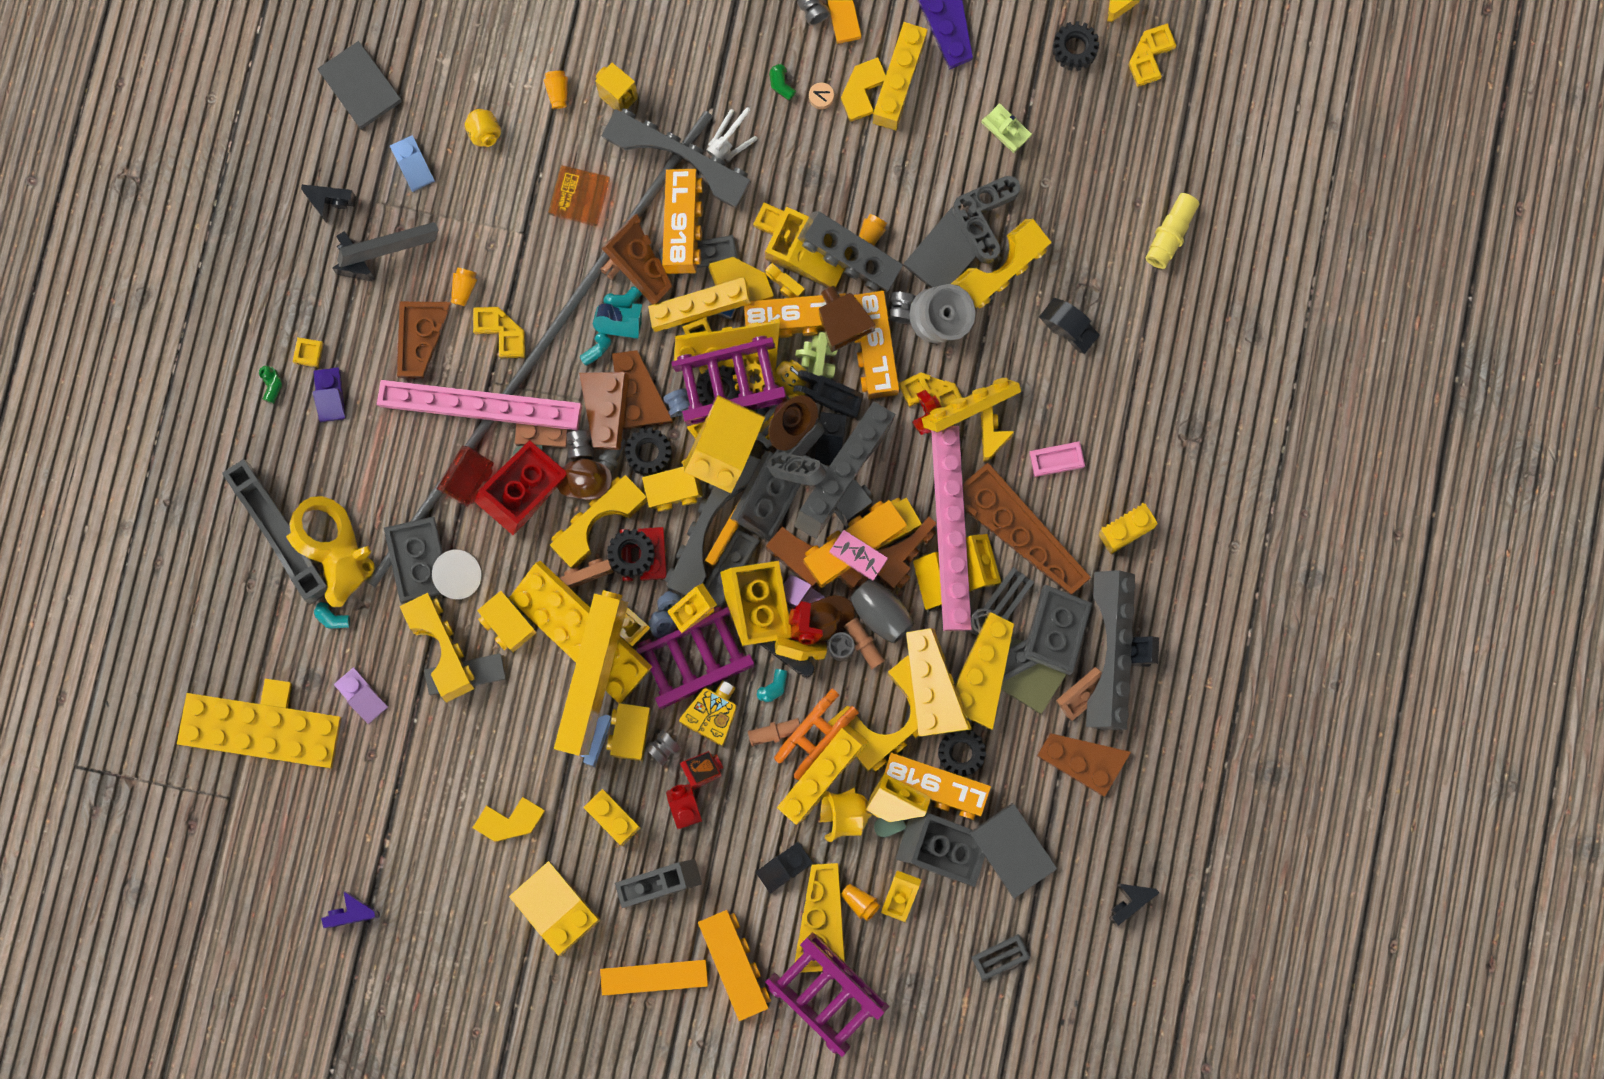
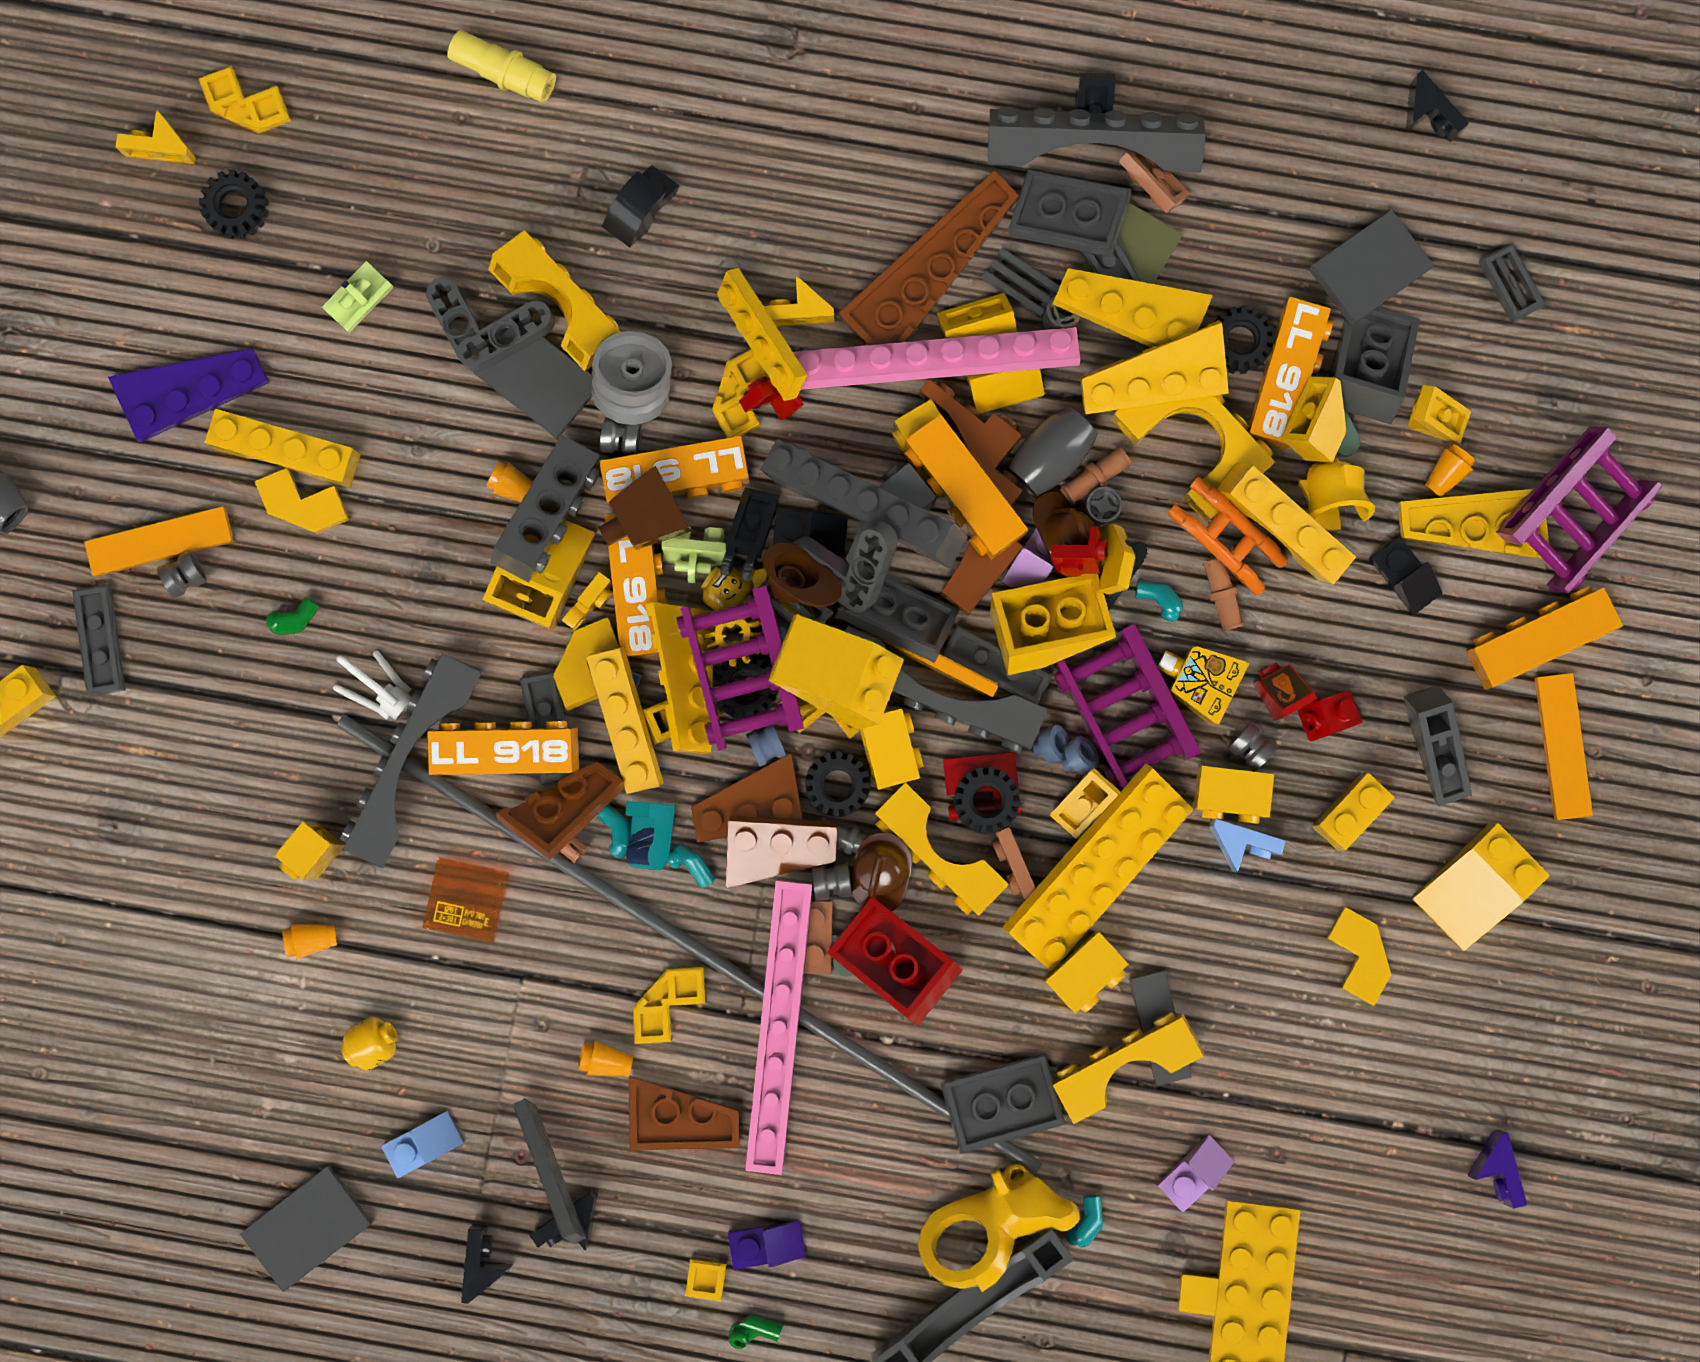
camera: 90 degrees left, 5 degrees up
(456, 574) = (1020, 1047): white sticker -> none
(465, 476) = (882, 1040): clear red brick -> none
(591, 673) = (1169, 843): yellow brick -> none
(692, 608) = (1065, 709): yellow slope -> none
(768, 218) = (495, 627): yellow tile -> none
(821, 95) = (312, 560): light nougat tile -> none
(858, 555) = (987, 478): bright pink tile -> none
(1057, 459) = (828, 221): bright pink tile -> none
(1084, 761) = (1244, 176): dark orange wing -> none
(1127, 528) = (925, 121): yellow brick -> none

